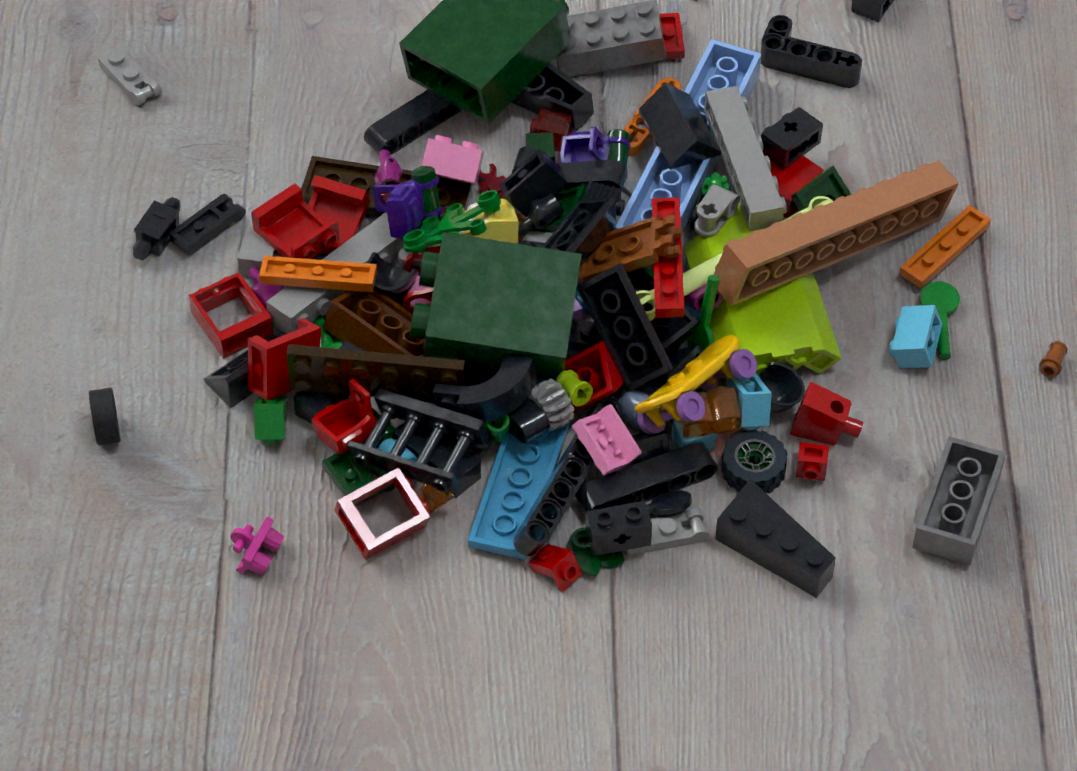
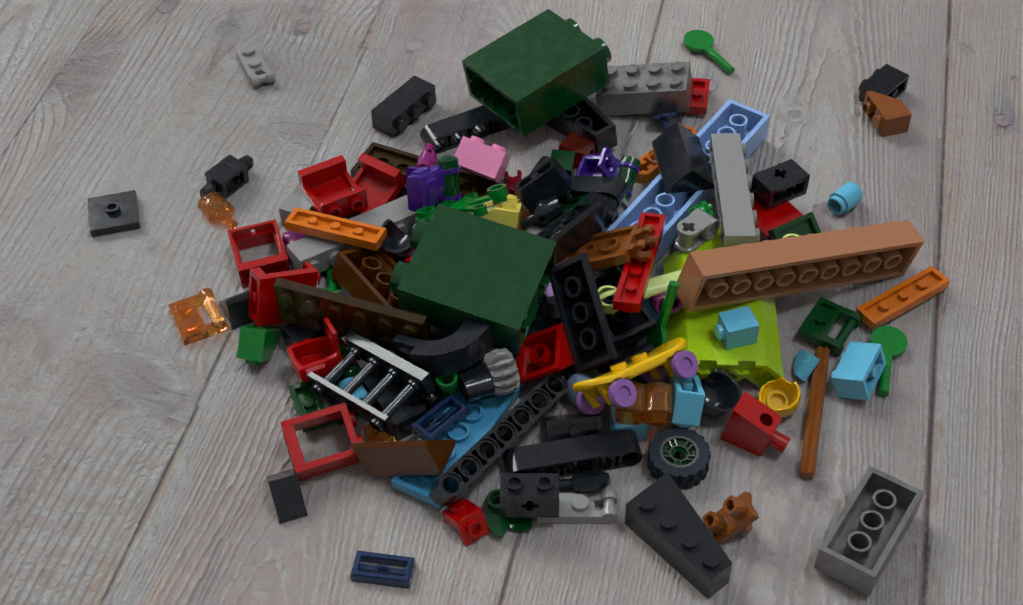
camera: 15 degrees right, 5 degrees down
(37, 294) = (113, 213): none -> black plate
(104, 416) = (117, 316): black tyre -> none
(160, 270) = (217, 209): none -> clear orange piece
(181, 407) = (189, 320): none -> clear orange plate
(206, 223) = (267, 180): black plate -> none
(244, 539) = (195, 459): dark pink hips -> none
(332, 104) = (403, 106): none -> black brick
(361, 574) = (287, 496): none -> black slope
(477, 513) = (404, 457): none -> reddish brown slope
(478, 478) = (444, 421): none -> dark blue tile
(487, 634) = (381, 573): none -> dark blue tile
(577, 390) = (527, 364): lime bush -> none
(607, 440) = (541, 412): bright pink bracket -> none
(639, 73) = (663, 119): none -> dark blue plant
(786, 314) = (737, 328): none -> medium azure brick
(807, 58) = (812, 129): black beam -> none
(812, 461) = (734, 467): red bracket -> none
(824, 513) = (733, 518): none -> dark orange hips
(843, 378) = (780, 396): none -> yellow hair
(859, 339) = (804, 364): none -> medium azure tile
(862, 140) = (845, 198): none -> medium azure brick
(866, 290) = (822, 321): none -> dark green plate
(880, 390) = (814, 414): none -> dark orange axle
(887, 26) = (886, 113): none -> dark orange slope
(1051, 364) = (985, 418): dark orange pin -> none

